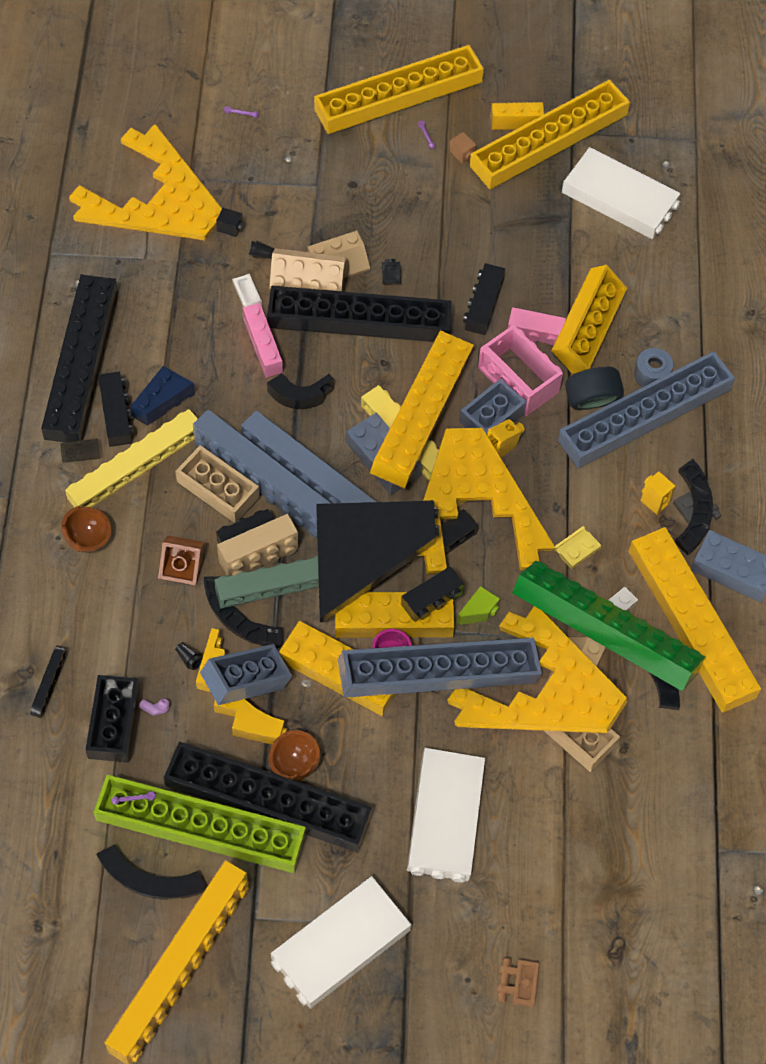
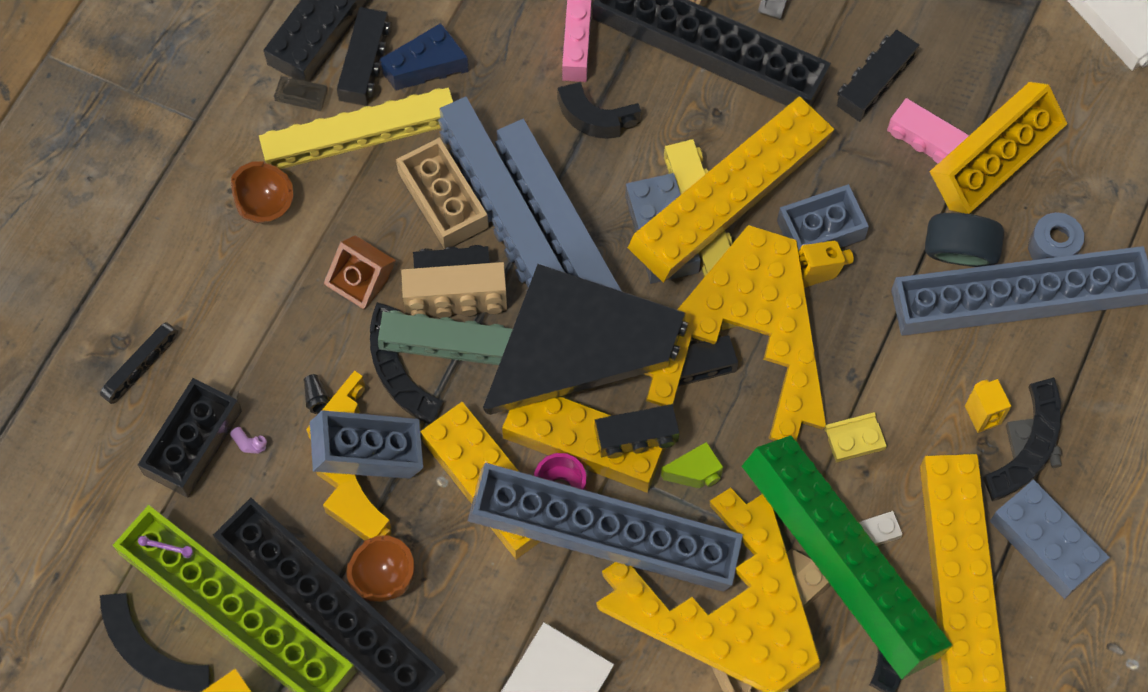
camera: 25 degrees right, 5 degrees up
(528, 352) = (873, 140): bright pink hose -> none

